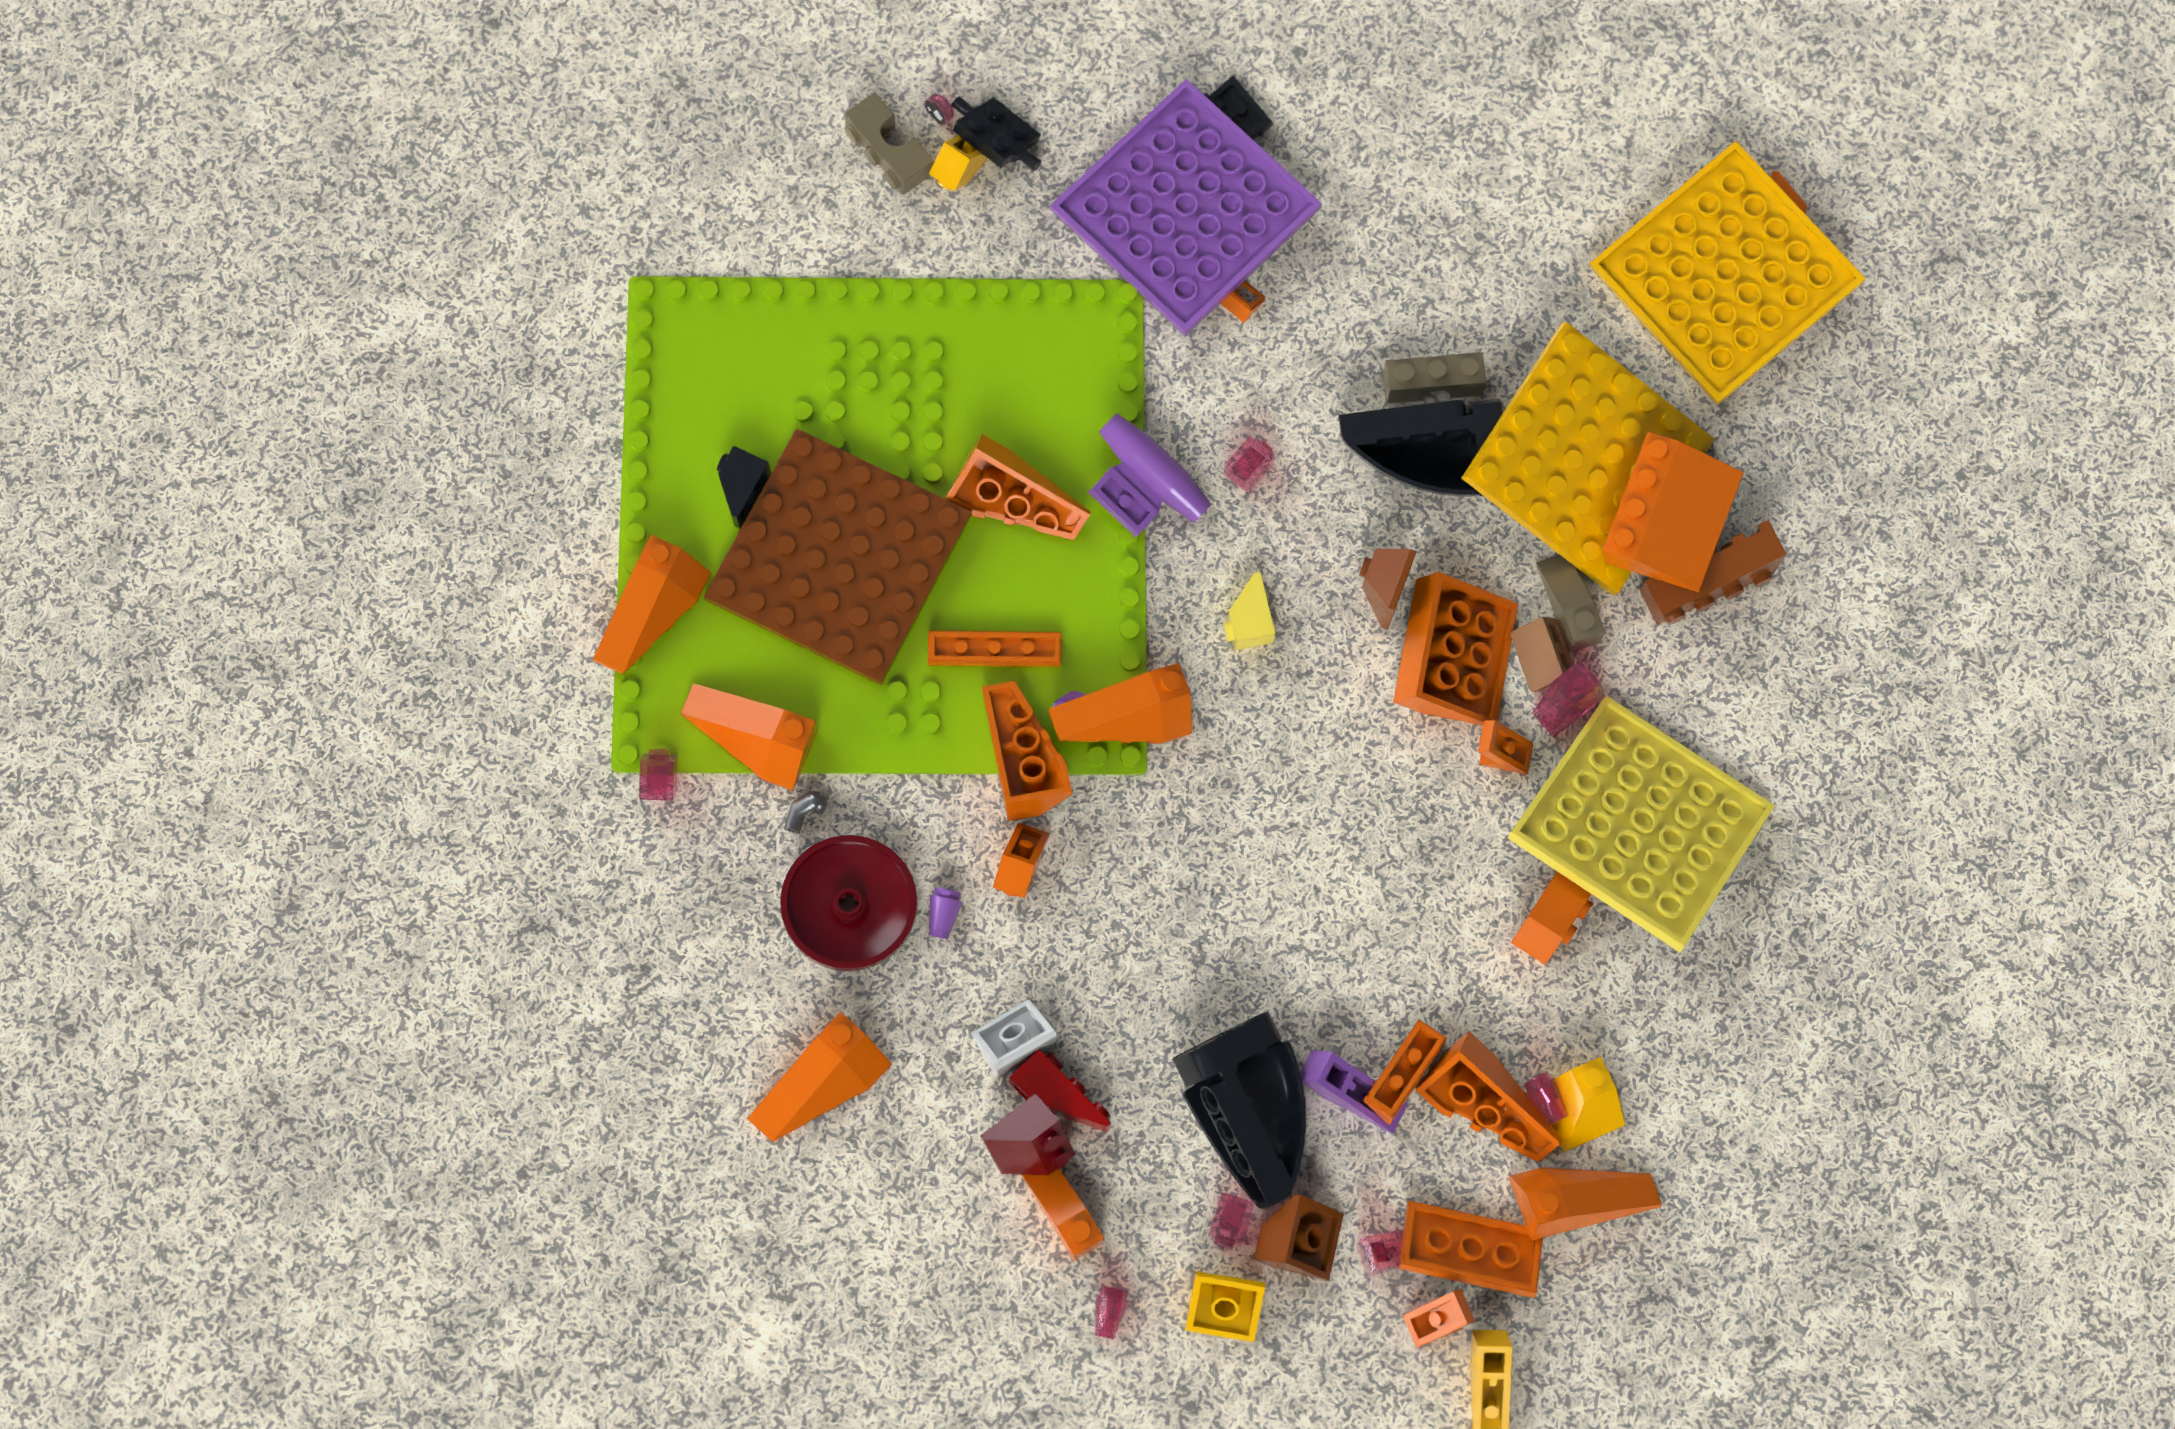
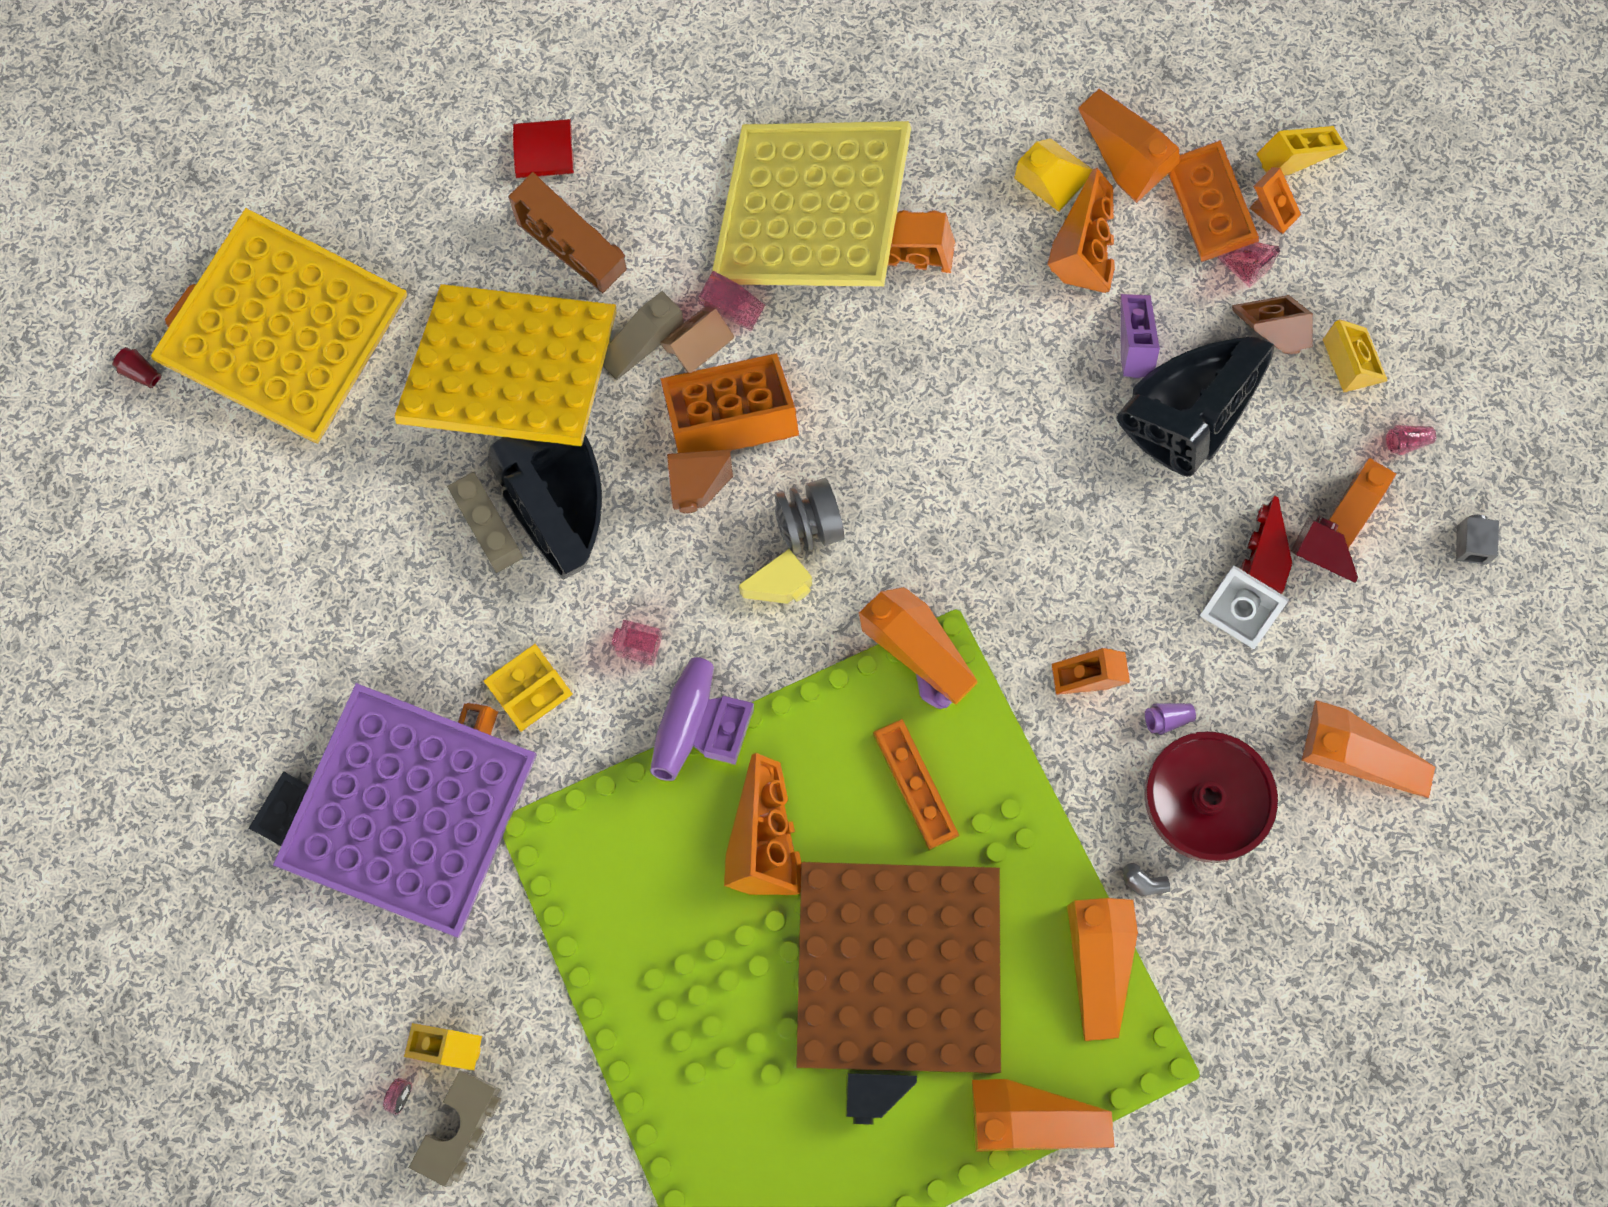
camera: 110 degrees left, 0 degrees up
(658, 775) = (1190, 1025): clear pink brick -> none
(971, 1312) = (1477, 540): none -> flat silver brick
(996, 132) = (401, 1025): black plate -> none
(1027, 762) = (1004, 707): orange wedge -> none
(1231, 1221) = (1290, 378): clear pink brick -> none
(1254, 355) = (528, 687): none -> yellow slope
(1299, 665) = (809, 516): none -> flat silver wheel
(1405, 1071) = (1102, 298): orange slope -> none
(1504, 748) = (796, 337): orange slope -> none
(1546, 1097) = (1066, 192): clear pink cone -> none
(1672, 513) = (533, 274): orange slope -> none
(1745, 131) = (136, 367): none -> dark red cone
(1832, 597) = (543, 148): none -> red slope

